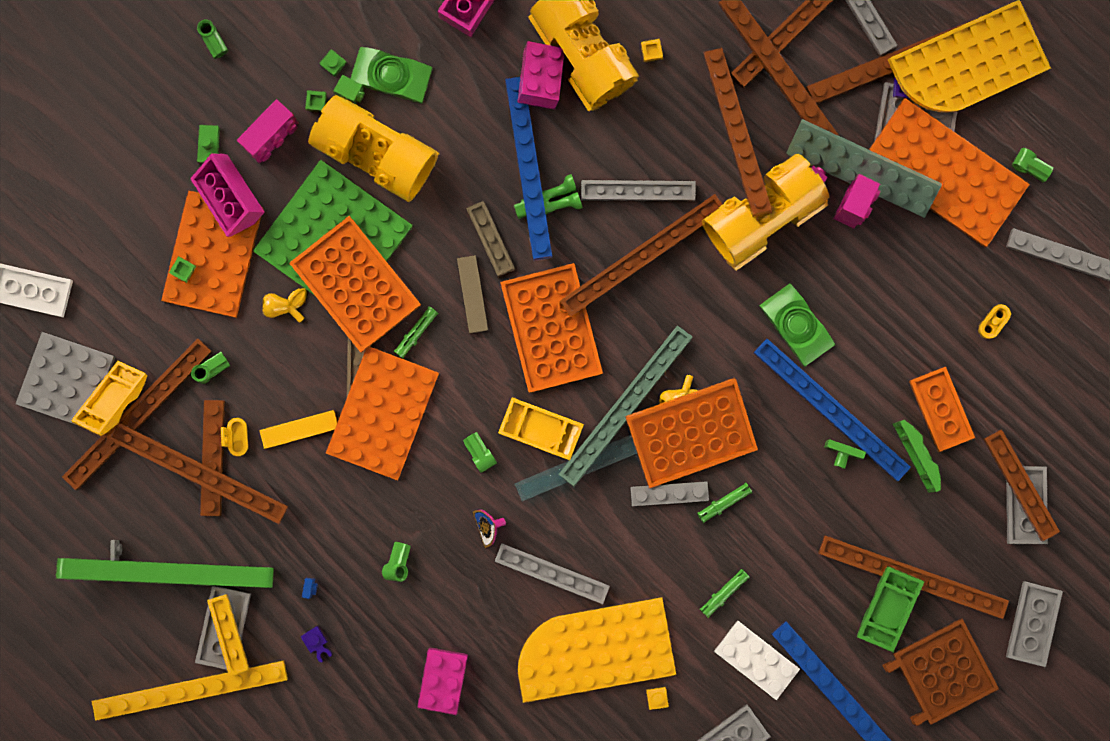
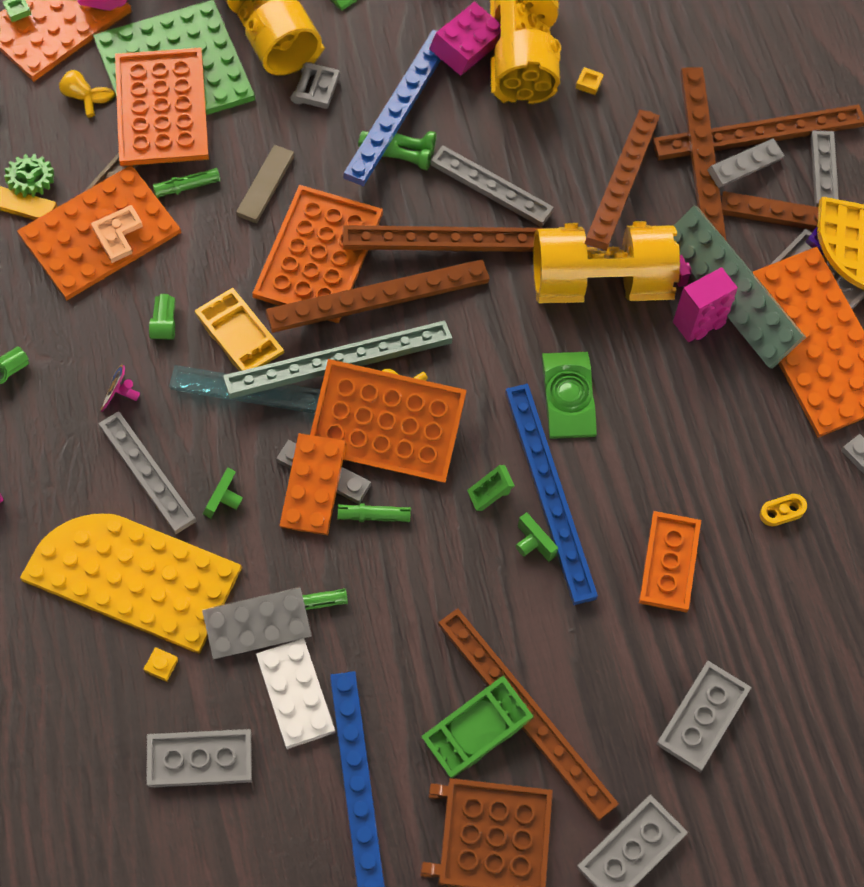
camera: 30 degrees right, 20 degrees down
(293, 407) = (29, 175): none -> bright green gear
(396, 412) = (112, 229): none -> light nougat plate
(457, 183) = (322, 86): none -> light grey plate
(490, 239) = (319, 149): dark tan tile -> none
(614, 557) = (223, 495): none -> bright green tile
(618, 337) = (376, 296): none -> dark orange plate
(671, 510) = (313, 484): none -> orange plate
(702, 632) = (256, 623): none -> light grey plate
(793, 436) = (491, 488): none -> bright green tile
(811, 53) = (745, 163): none -> light grey plate
(919, 455) = (614, 583): bright green slope -> none
(1021, 485) = (709, 686): dark orange plate -> none

